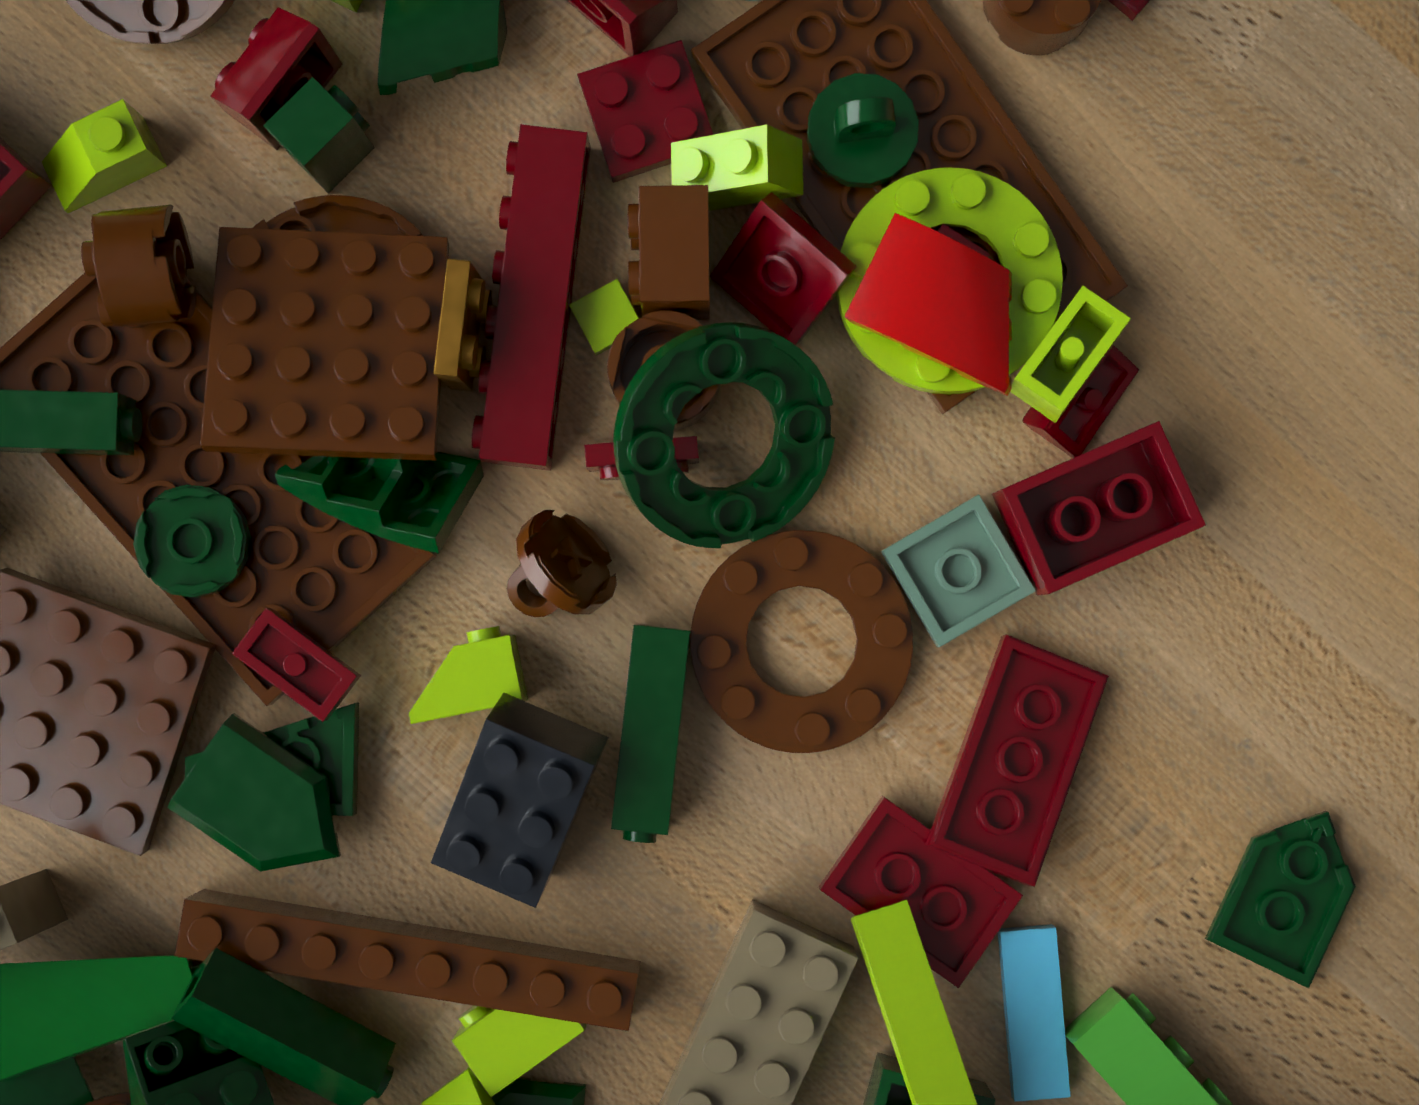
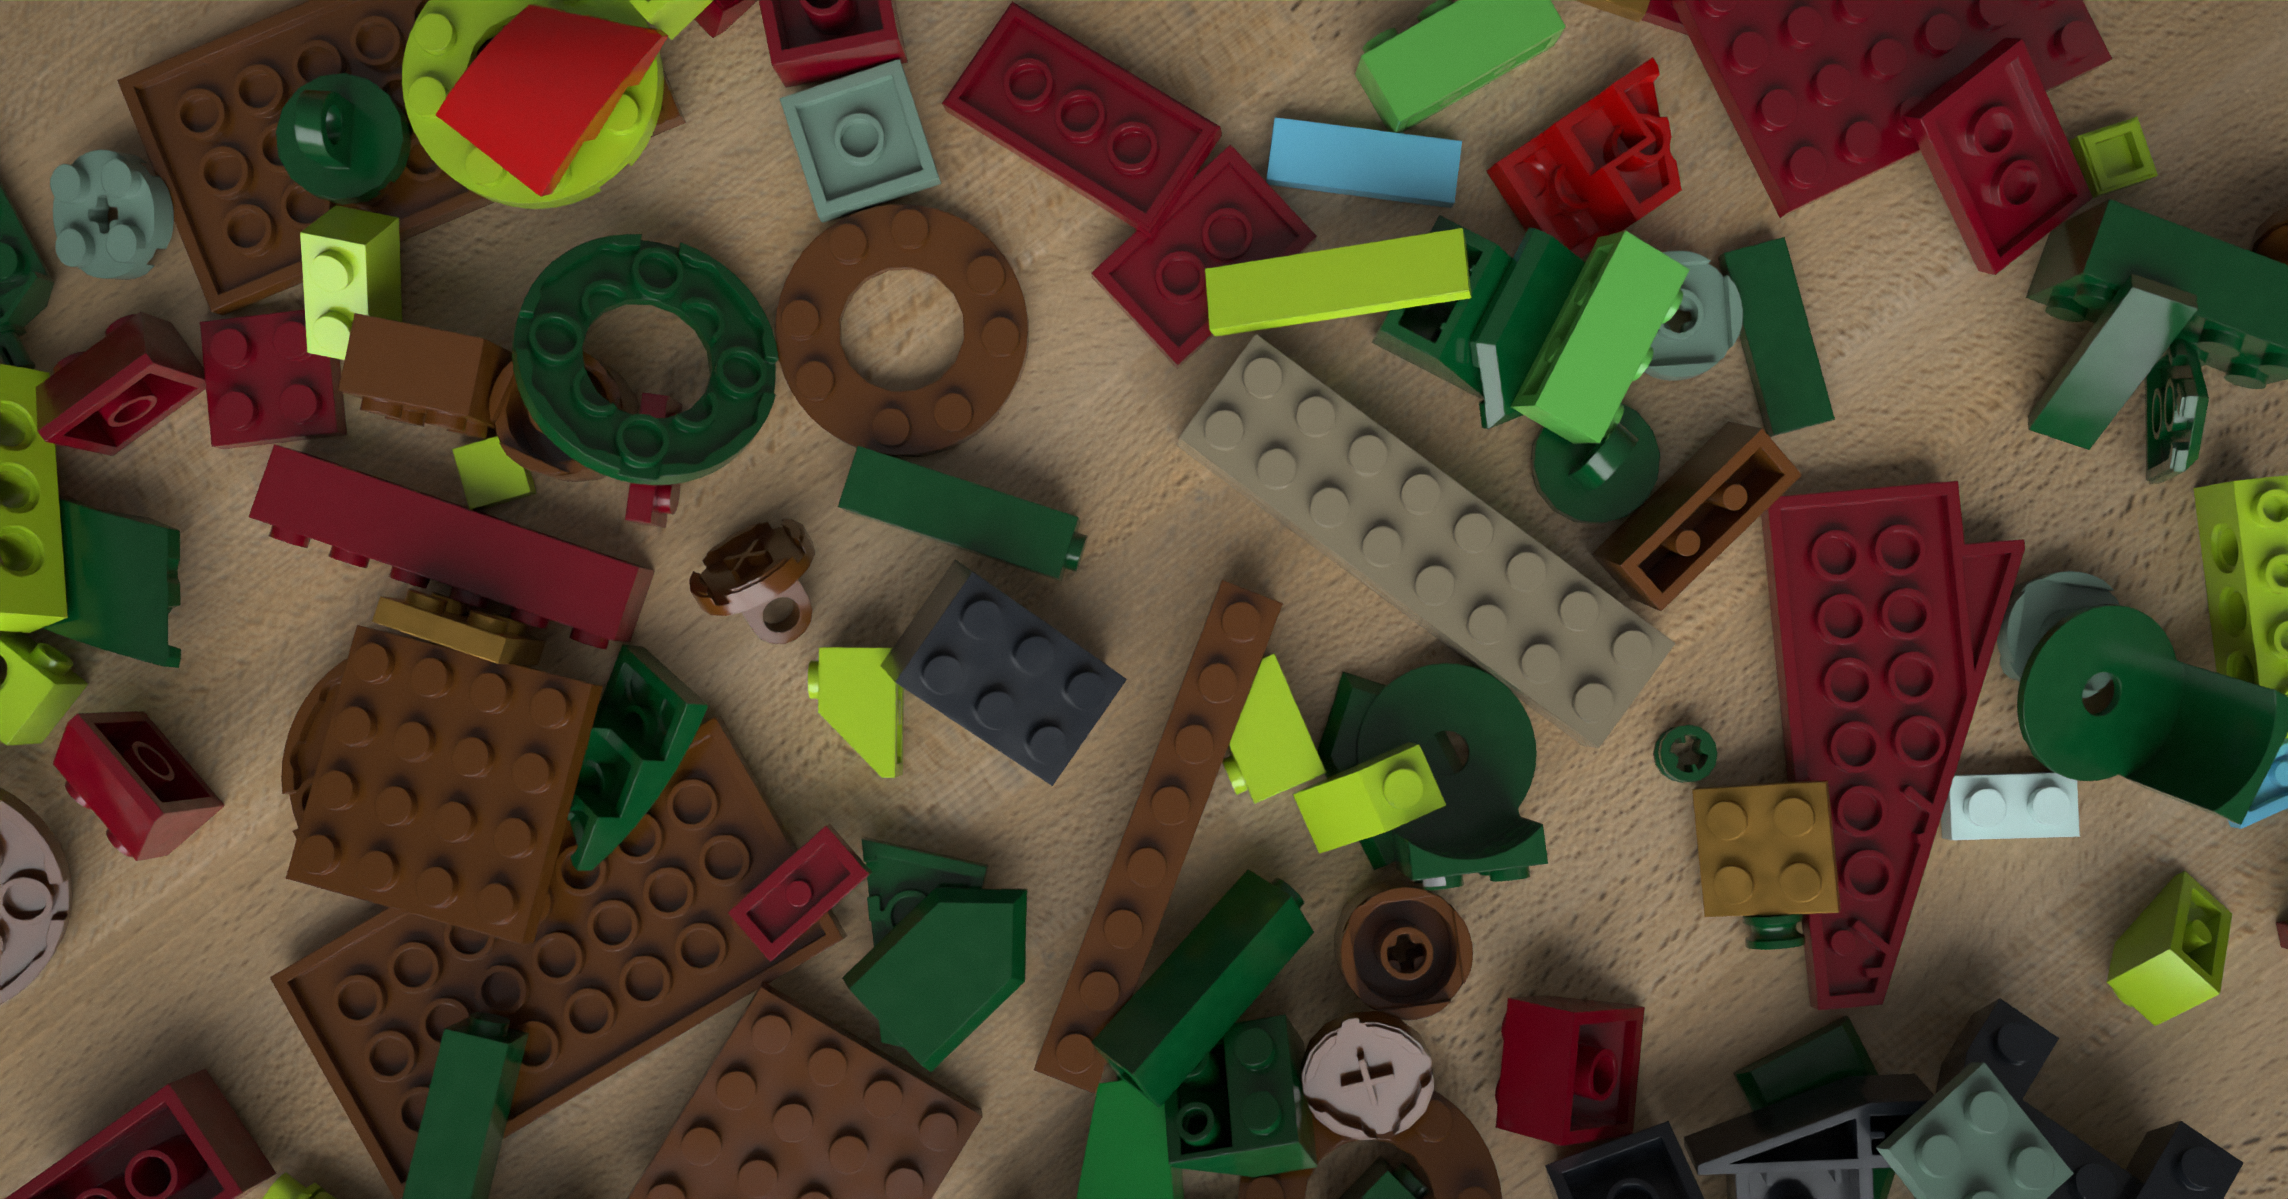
camera: 75 degrees left, 0 degrees up
(101, 155) = (181, 1004): lime slope -> none
(140, 266) = (305, 973): reddish brown brick -> none
(192, 541) = (638, 984): dark green tile -> none
(322, 133) = (207, 743): dark green brick -> none
(782, 269) = (474, 257): dark red plate -> none

